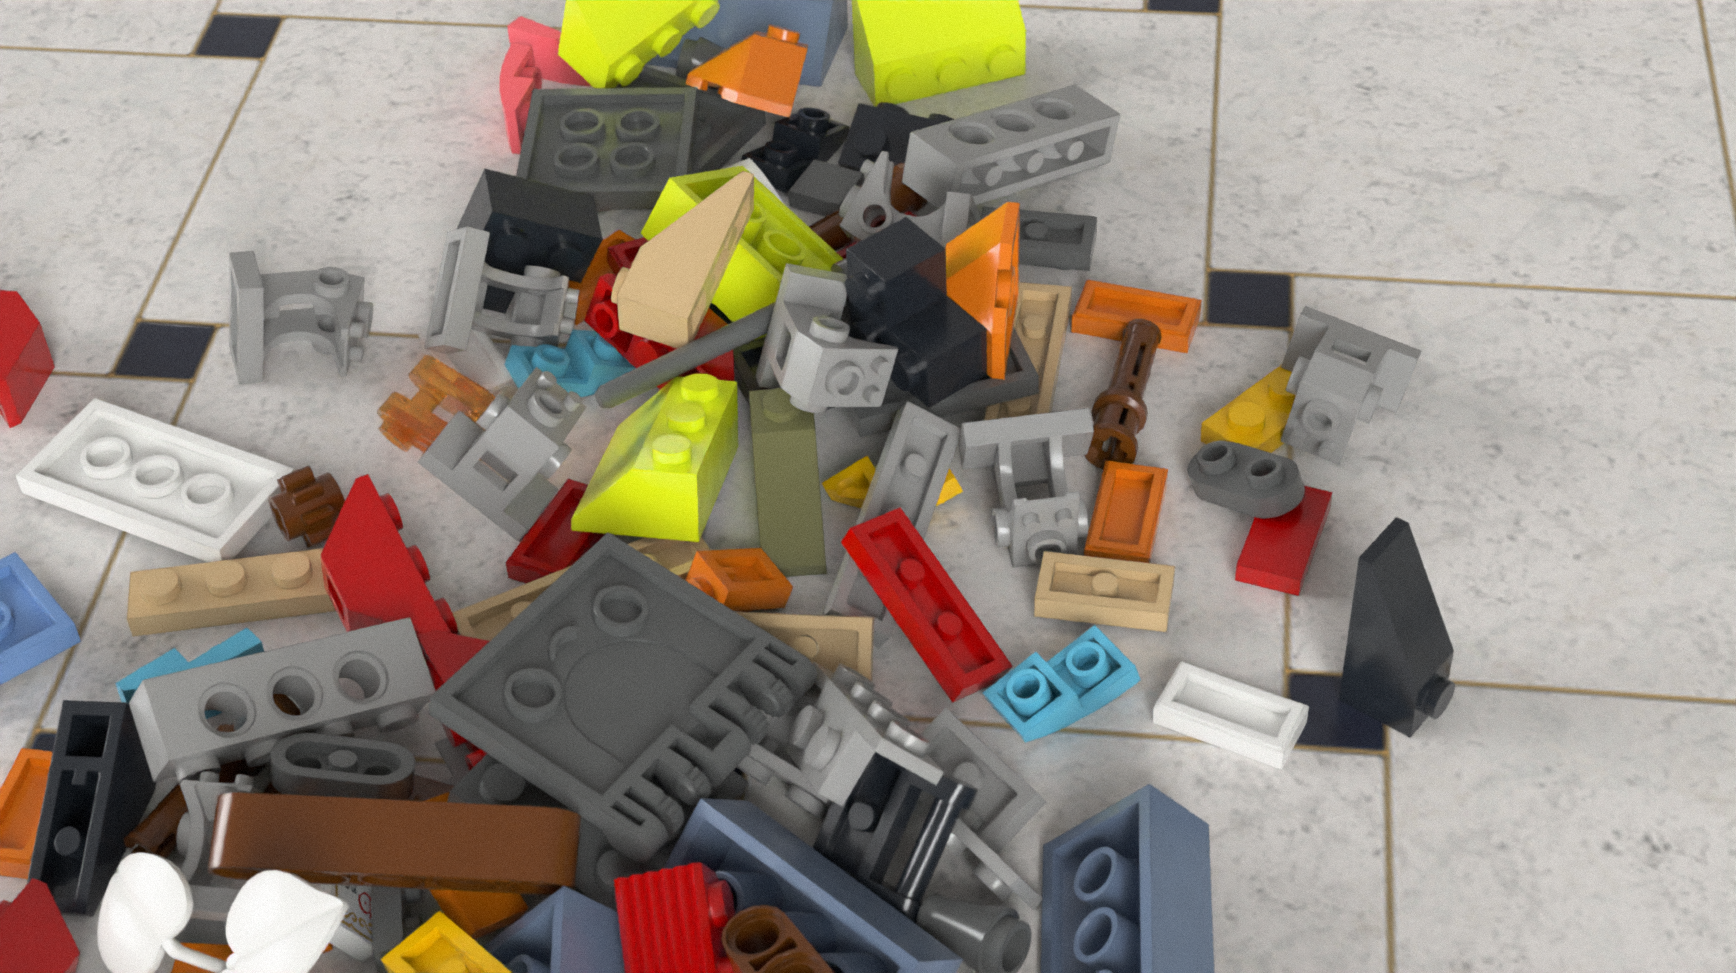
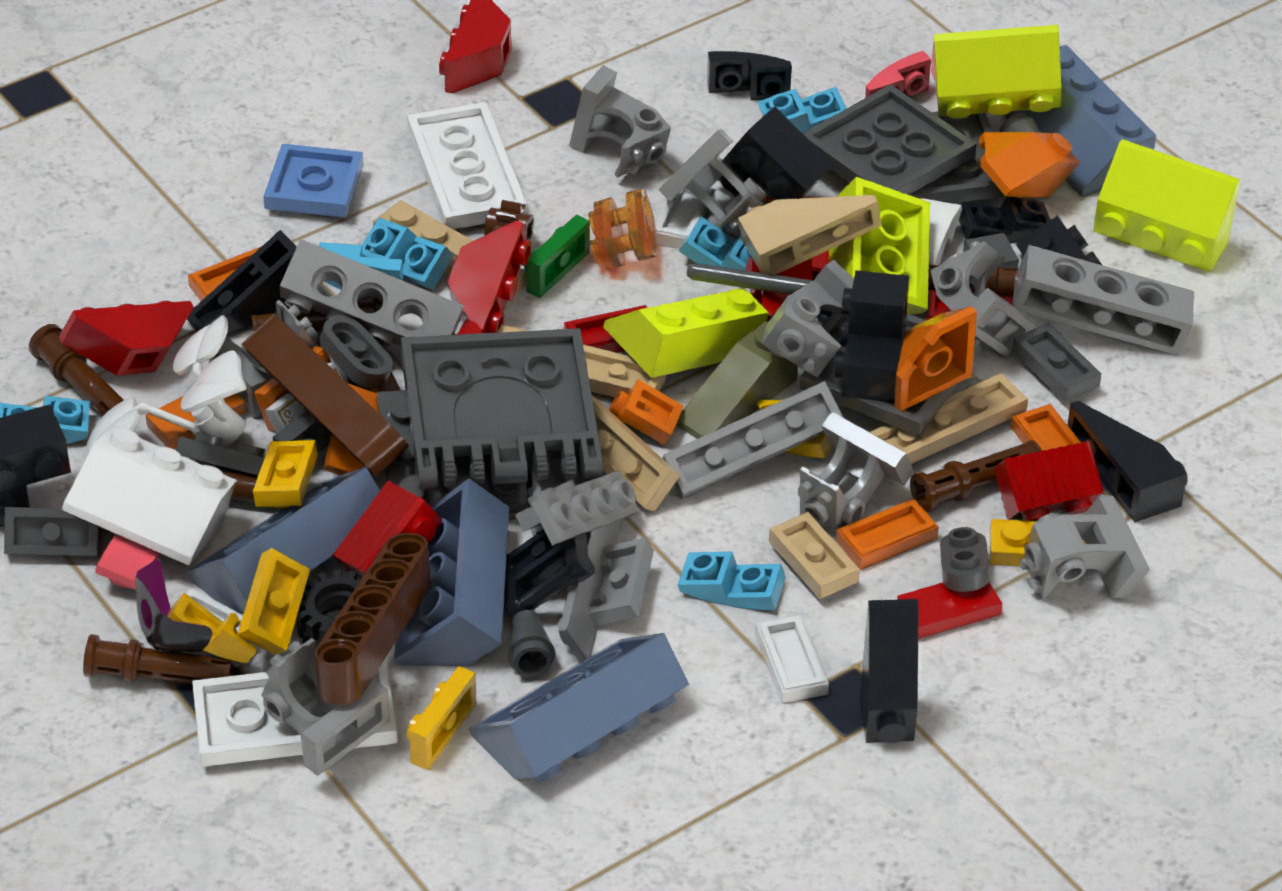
camera: 45 degrees right, 0 degrees up
(205, 618) = (422, 259): none -> medium azure slope
(358, 176) = (749, 72): none -> black slope
(399, 479) = (557, 256): none -> green plate
(445, 190) = (808, 111): none -> medium azure slope
(517, 442) = (610, 259): light grey tile -> none
(926, 604) = (709, 486): red plate -> none
(1209, 346) = (1049, 482): none -> red brick
(1237, 277) = (1130, 464): none -> black slope

